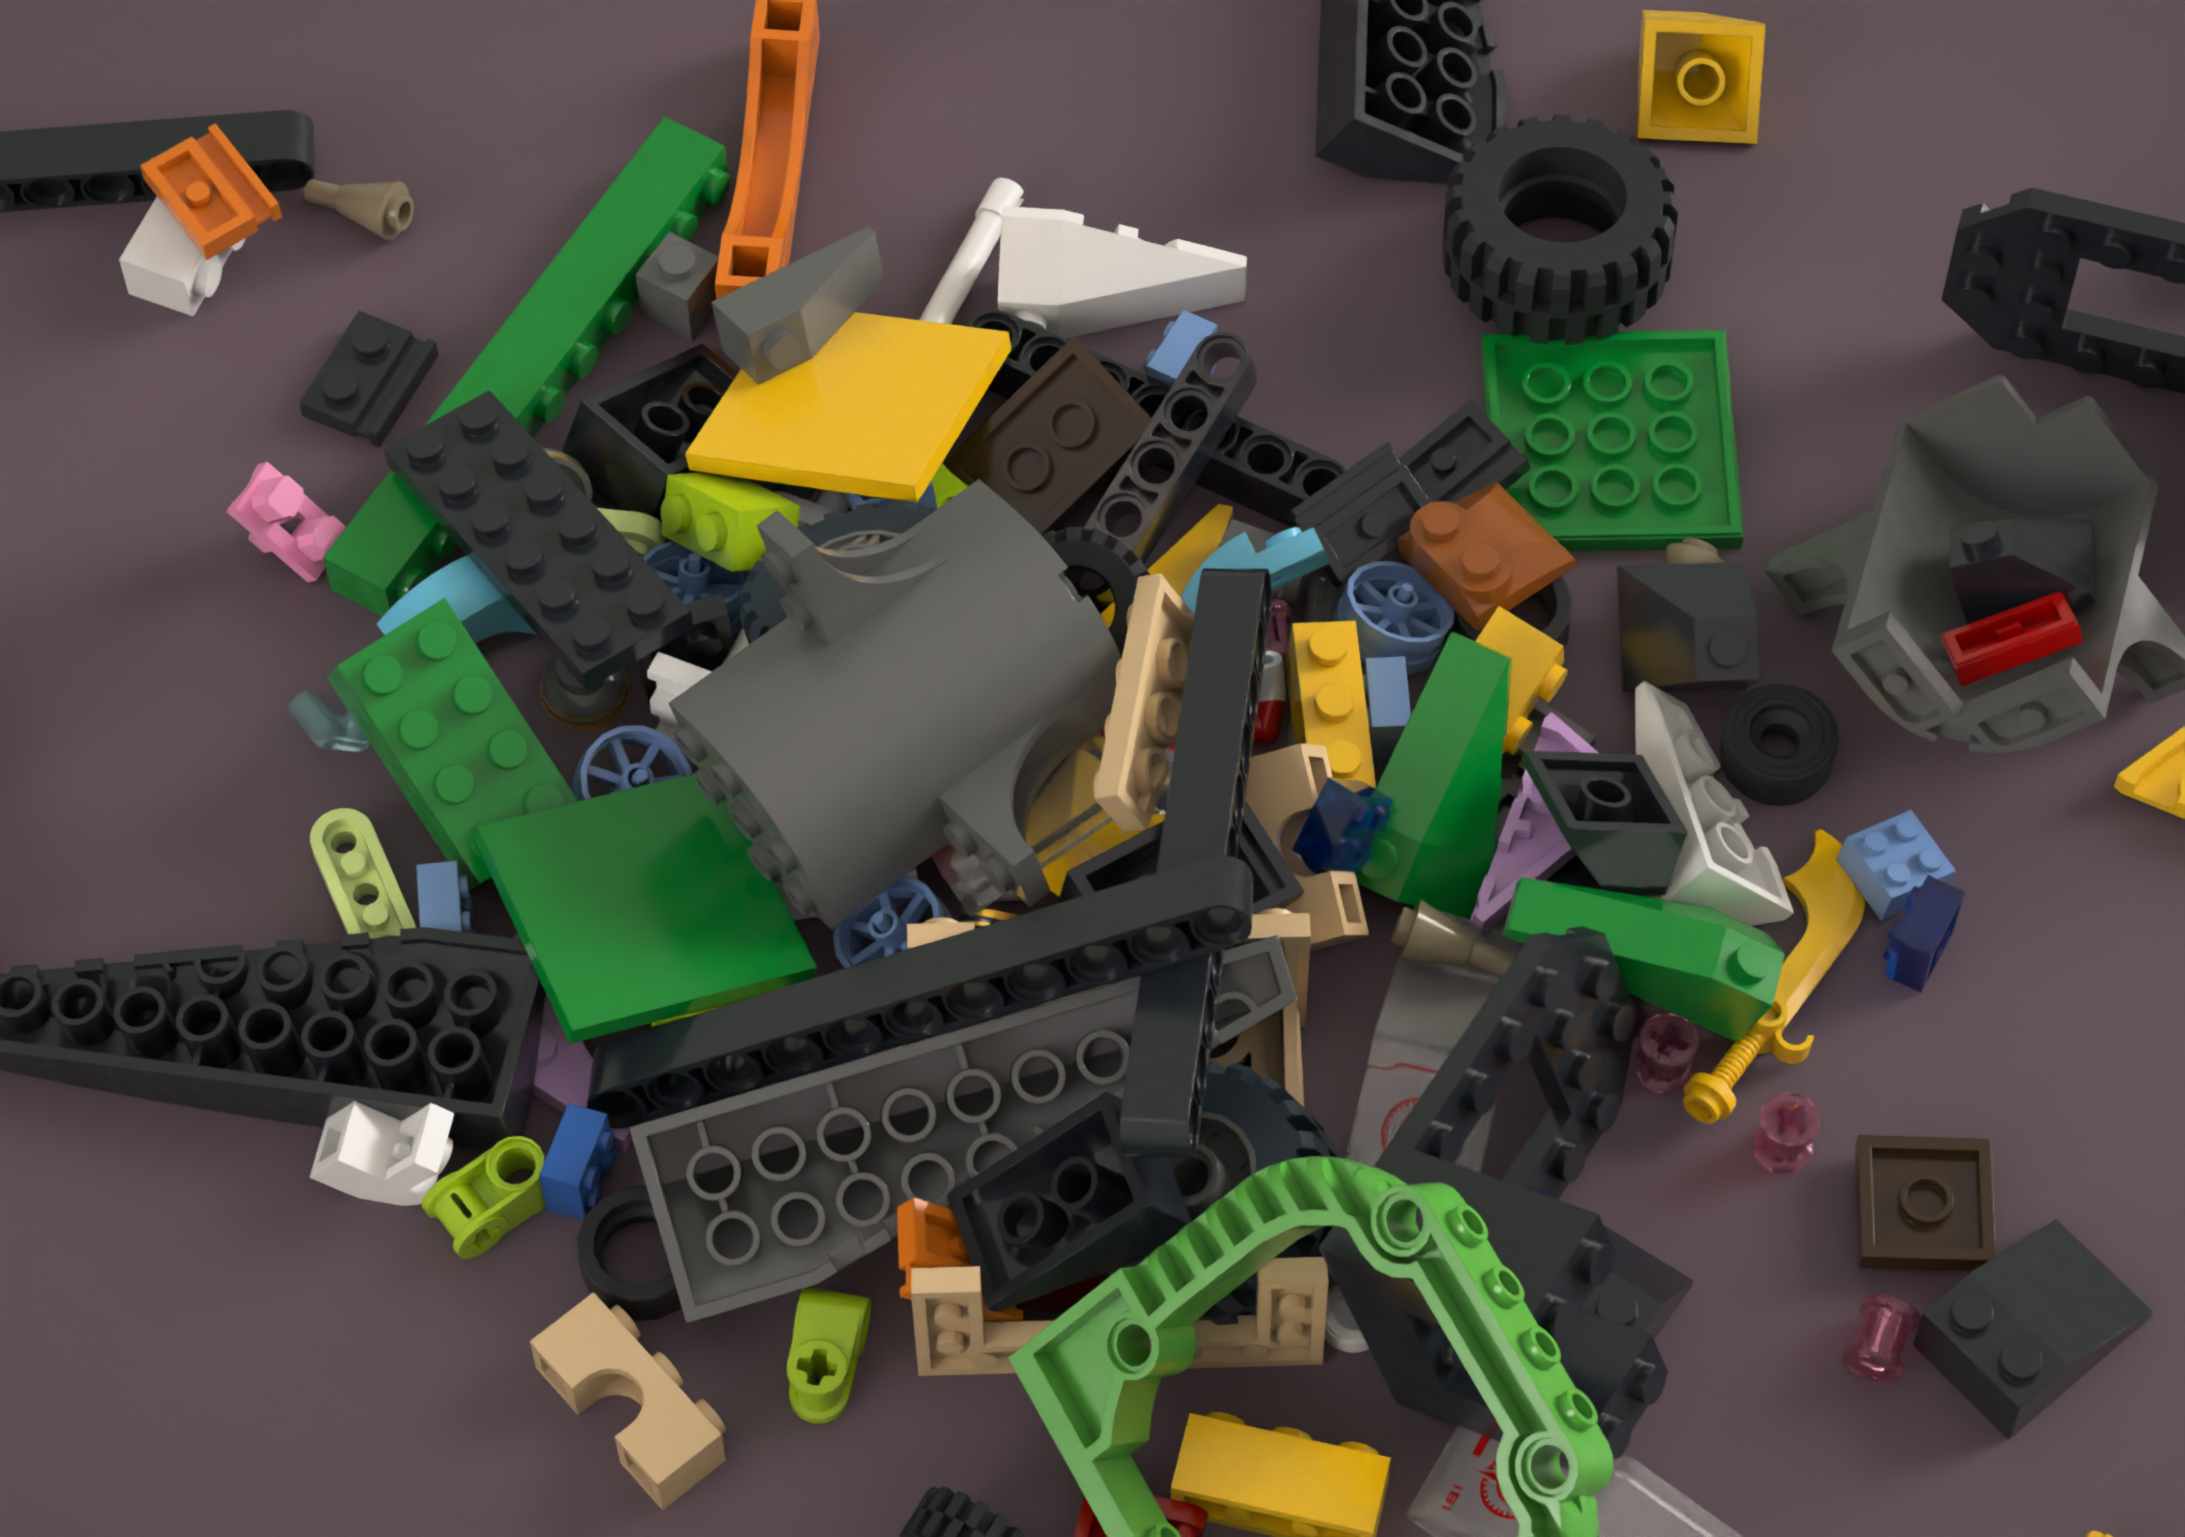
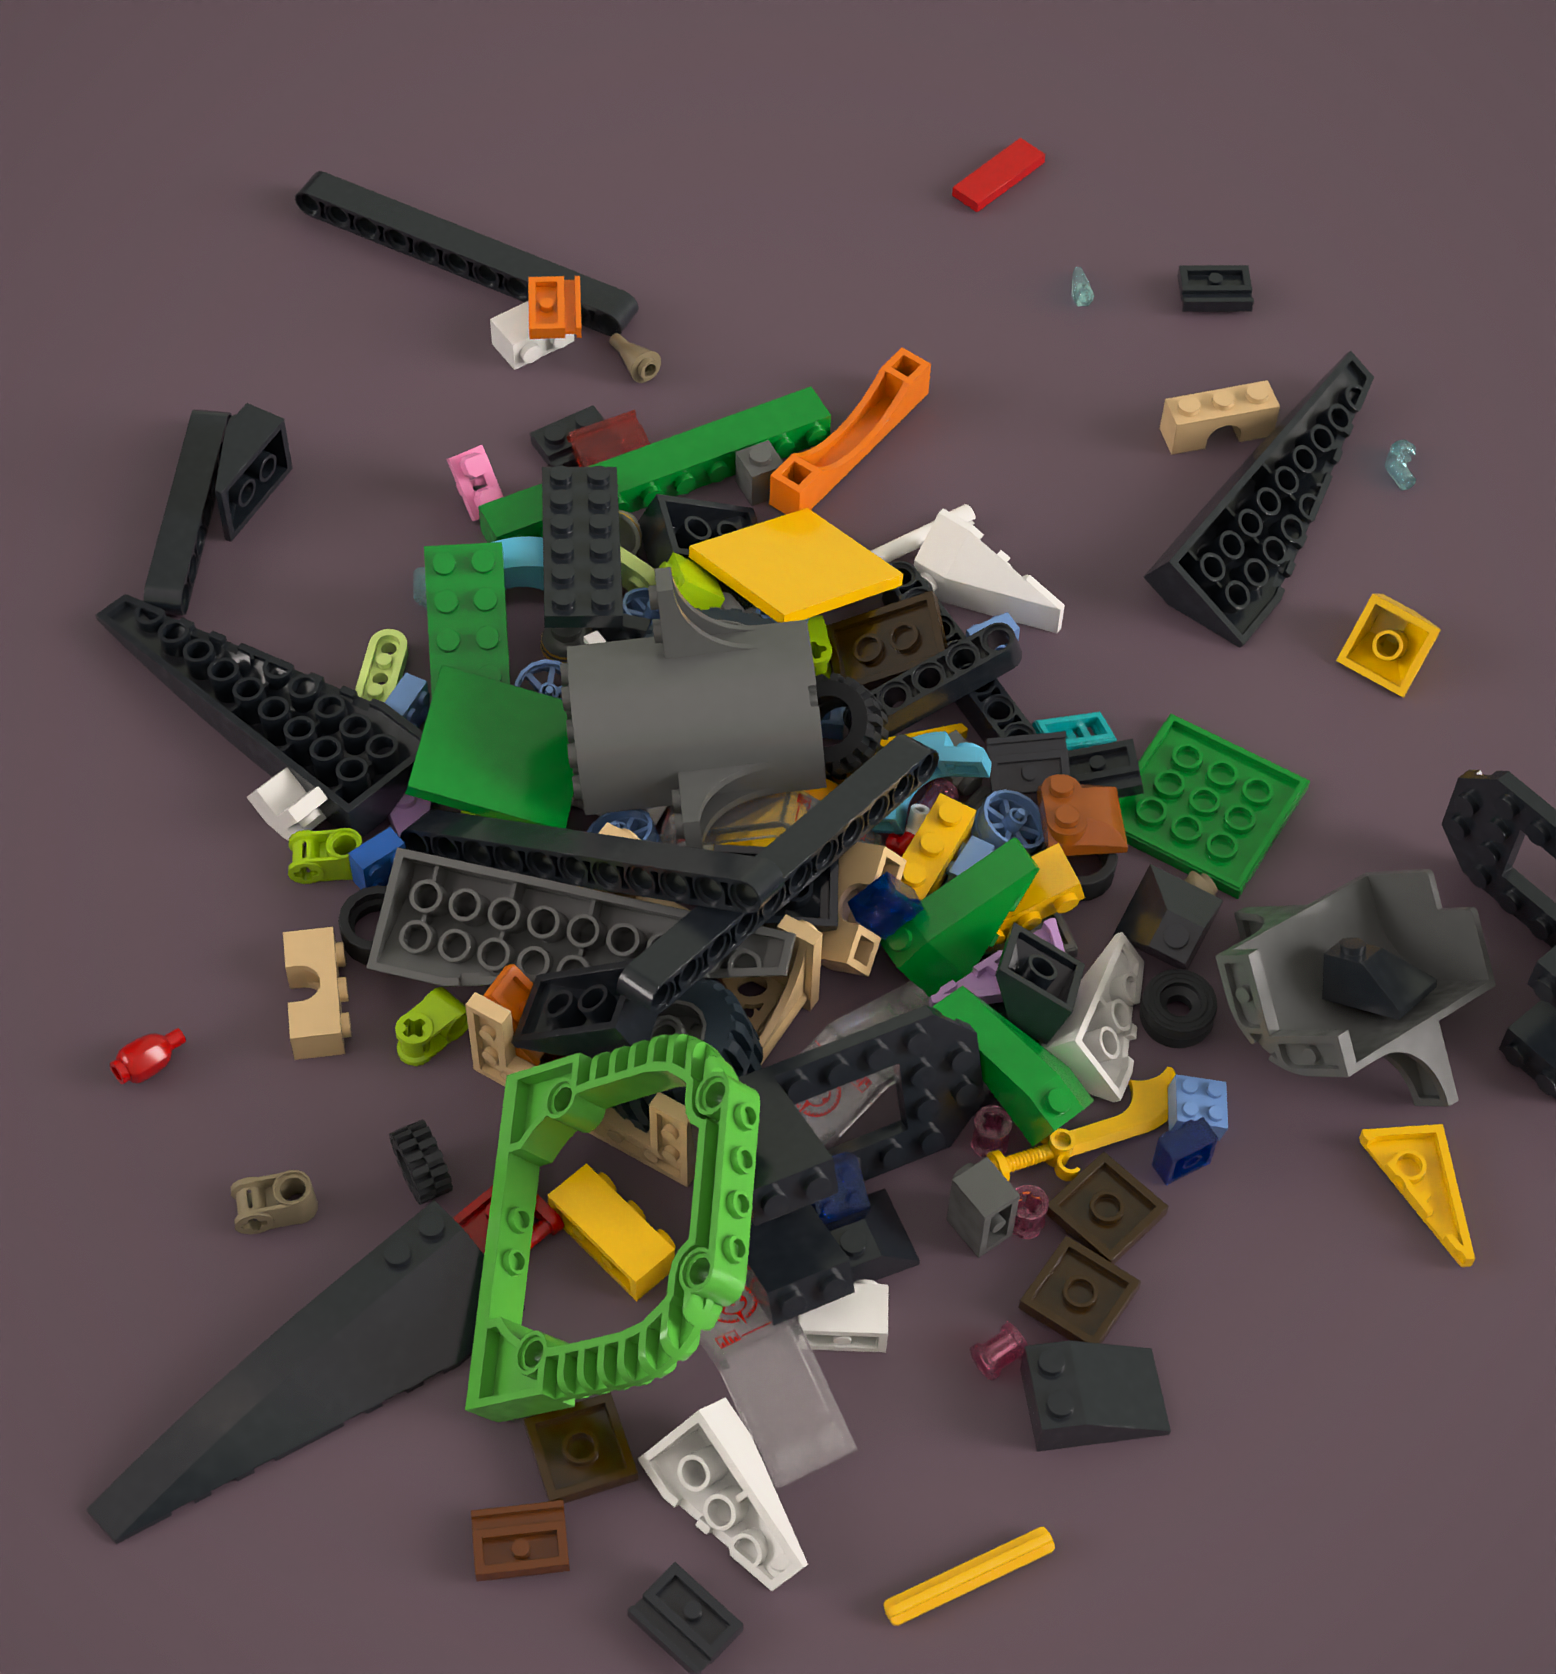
camera: 30 degrees right, 5 degrees down
(430, 357) = (607, 439): none -> clear red plate
(798, 307) = (808, 507): dark grey slope -> none
(1144, 704) = (815, 779): tan wing -> none
(1368, 417) = (1078, 724): none -> teal slope
(1436, 939) = (898, 992): dark tan cone -> none
(1550, 285) = (1243, 711): black tyre -> none
(1689, 1412) = (851, 1322): none -> white brick
(1734, 1160) = (982, 1206): none -> dark grey brick
(1879, 1068) = (1106, 1208): none -> dark brown plate
(2011, 638) = (1335, 1012): red tile -> none

